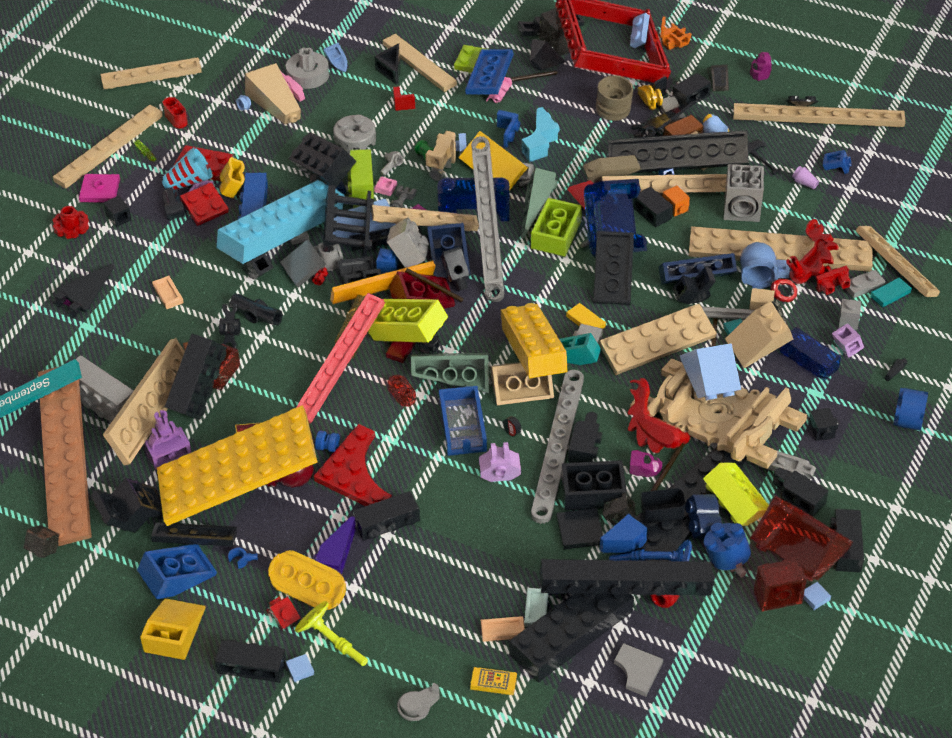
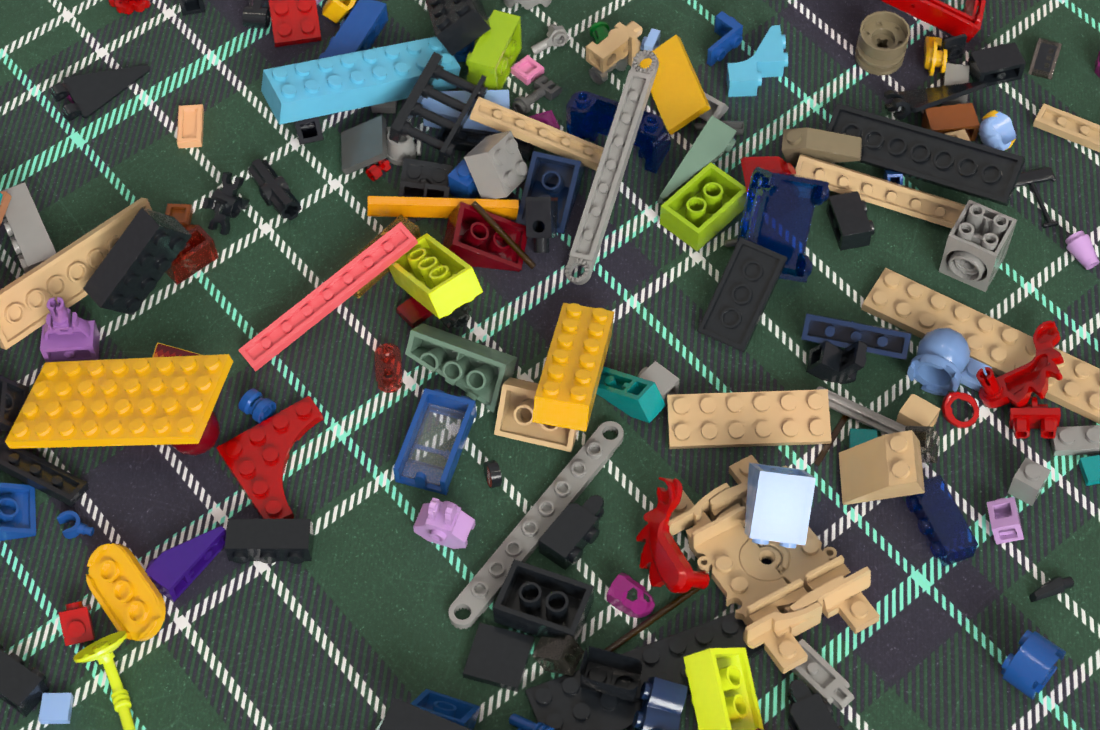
camera: 25 degrees right, 10 degrees up
(582, 315) = (673, 352): yellow tile -> none
(624, 536) = (537, 698): blue slope -> none
(678, 199) = (886, 222): orange brick -> none
(823, 424) = (901, 635): black brick -> none

